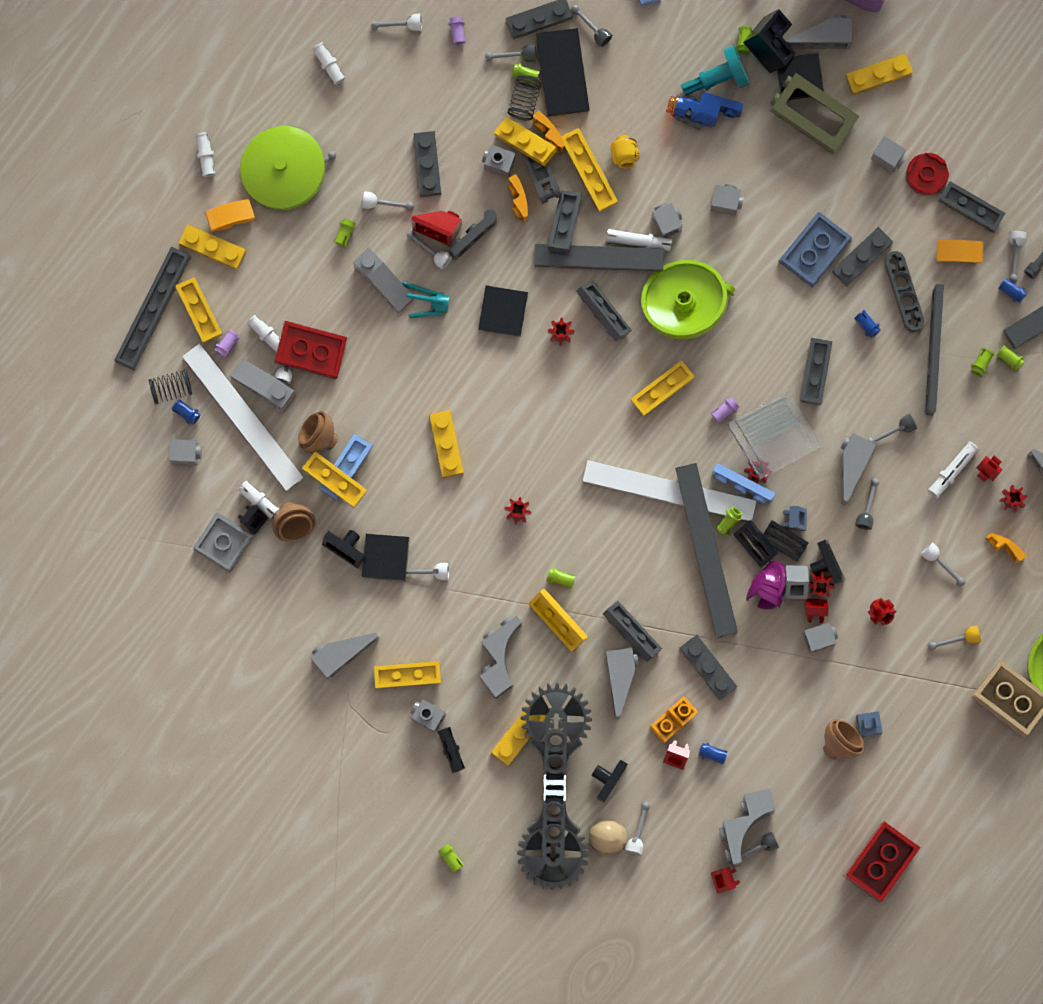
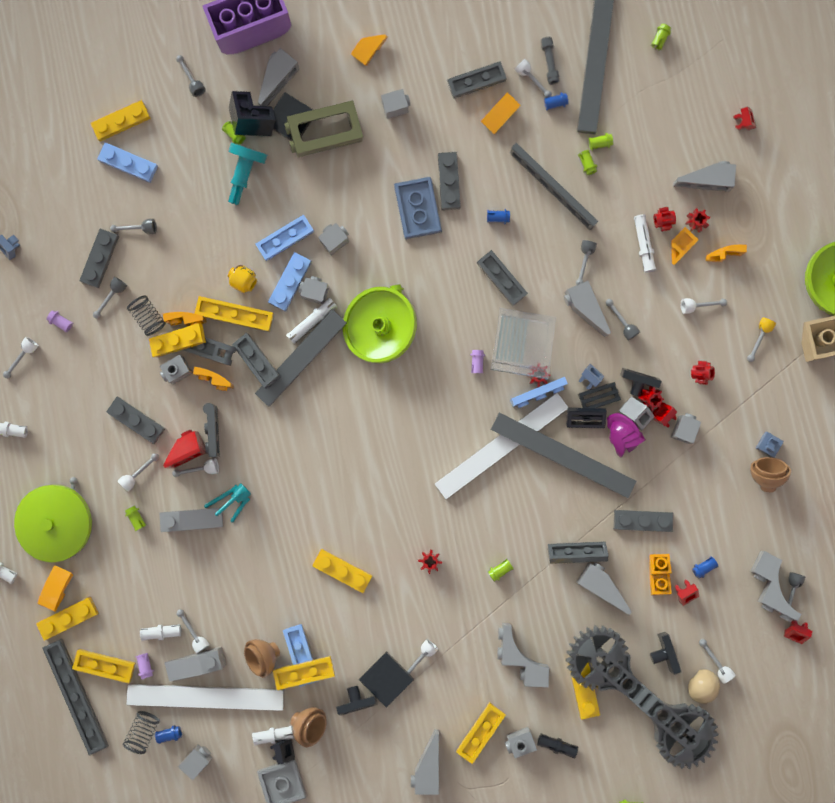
camera: 50 degrees left, 5 degrees up
(310, 350) = (197, 611): red tile -> none
(503, 310) = (282, 454): black piece -> none
(519, 70) = (124, 302): lime pin -> none
(558, 620) = (528, 597): yellow plate -> none
(561, 325) = (326, 423): red gear -> none
(562, 72) = (150, 274): black tile -> none
(604, 311) = (340, 386): dark grey plate -> none
(657, 194) = (289, 281): none -> light blue plate
(662, 388) = (427, 391): yellow plate -> none
(691, 158) = (284, 237): none -> light blue plate
(703, 112) = (260, 202): blue plate -> none
(732, 517) = (556, 422): lime pin -> none
(879, 74) = (333, 64): yellow plate -> none
(901, 292) = (497, 171): dark grey beam -> none
(918, 90) = (367, 48): none -> light orange slope
(927, 174) = (429, 90): red tile -> none
(980, 503) = (681, 244): none -> light orange slope

